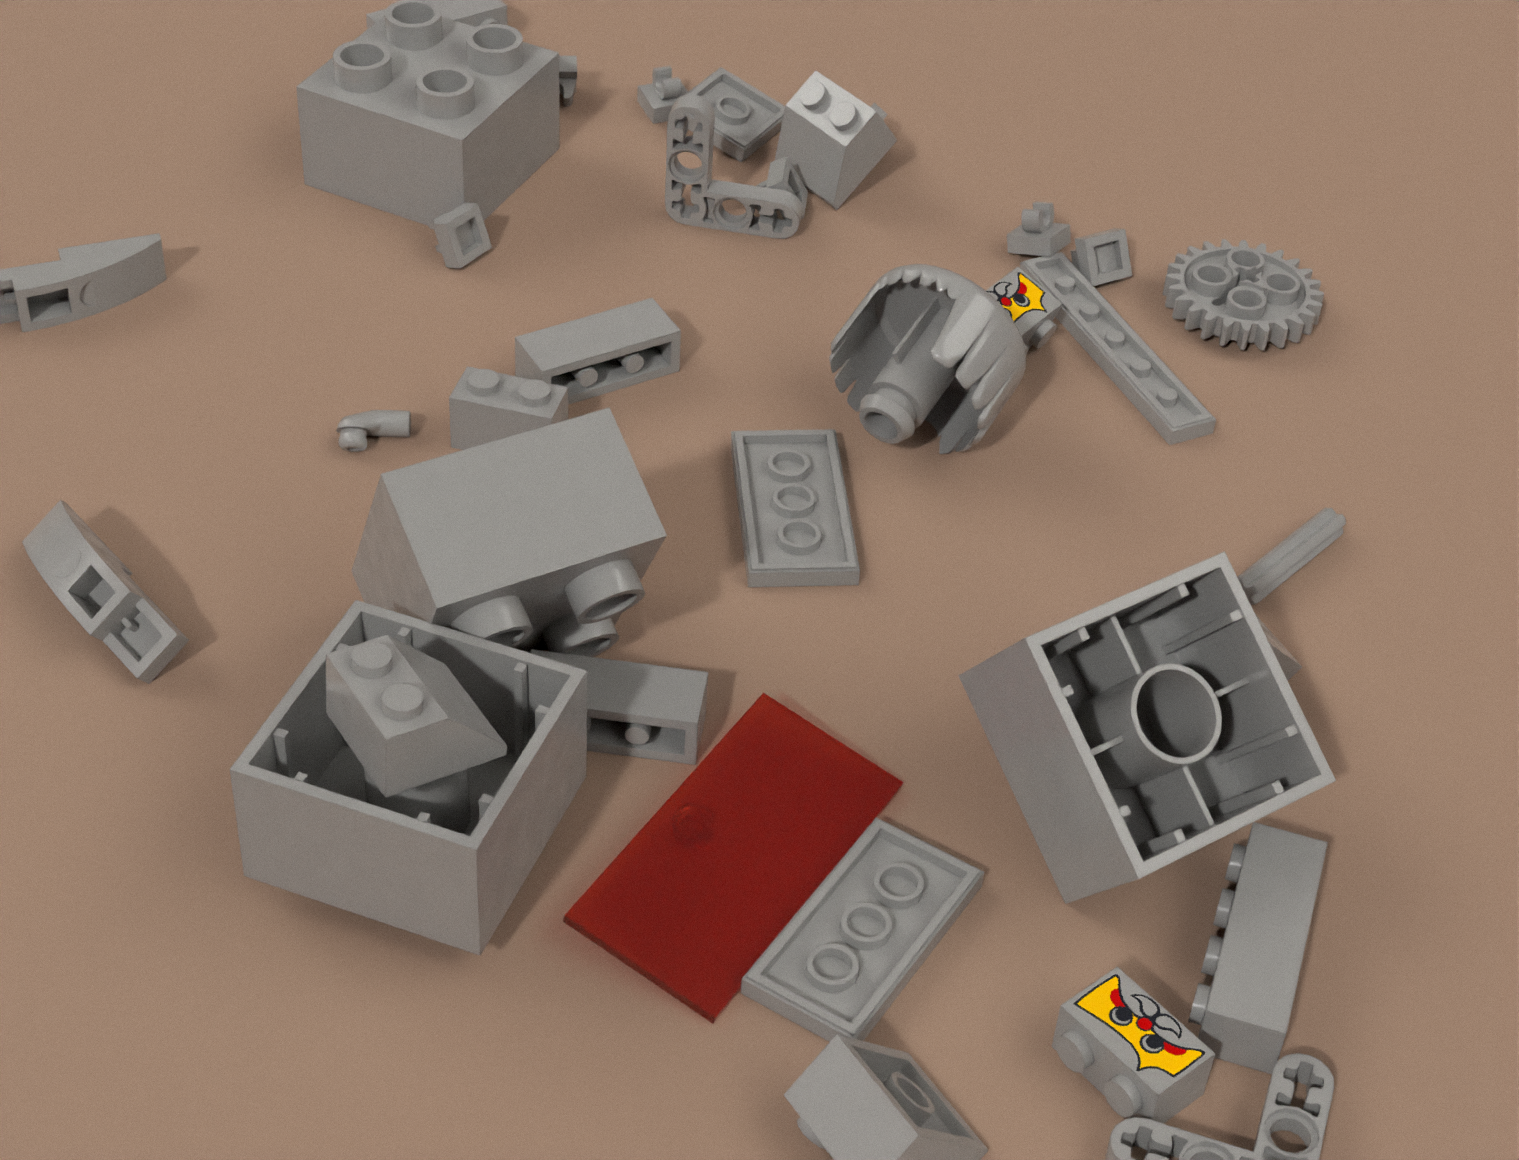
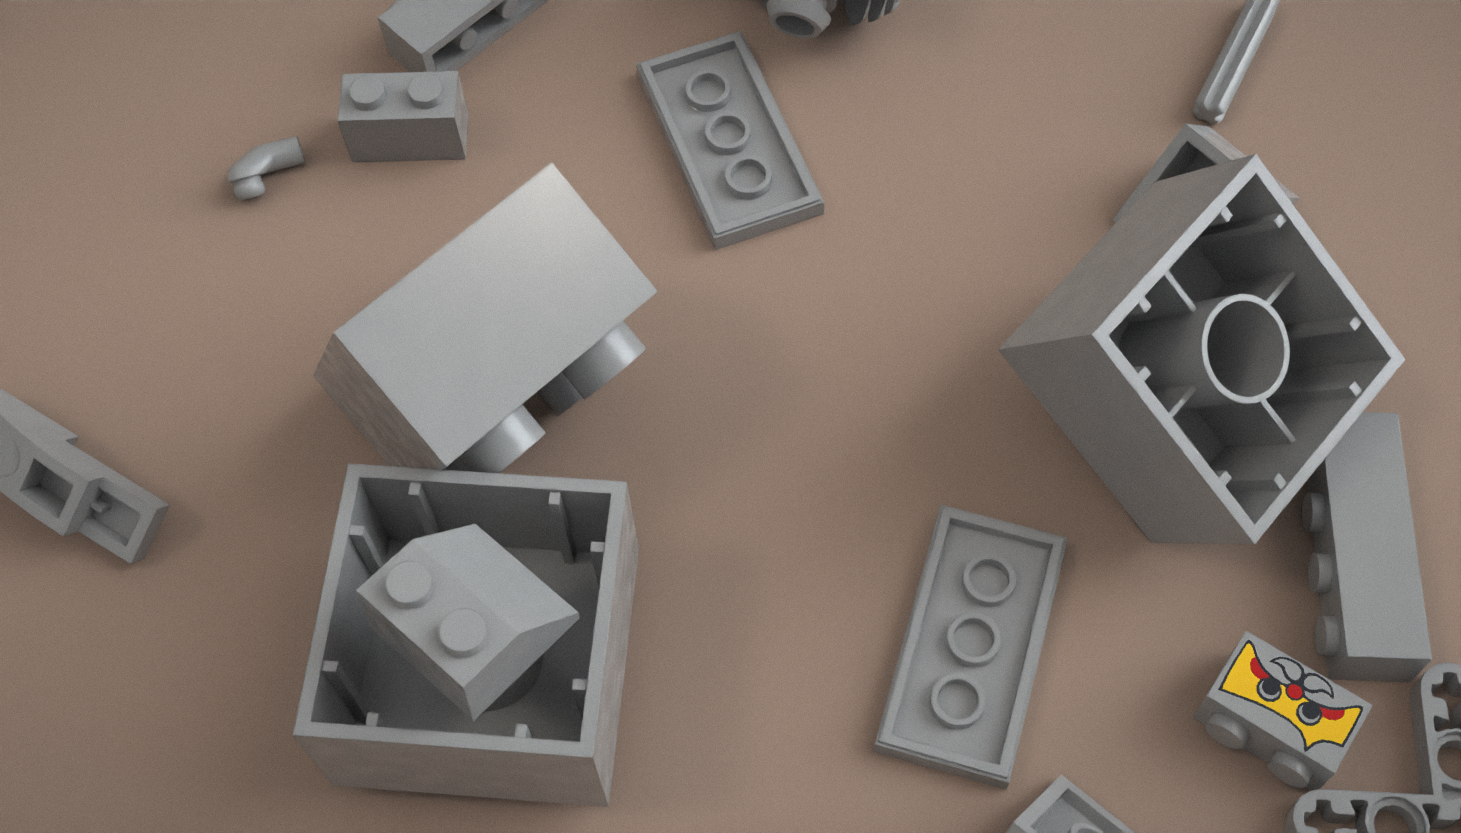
camera: 10 degrees left, 20 degrees up
(641, 707) = (651, 445): light grey brick -> none
(733, 856) = (816, 596): clear red piece -> none

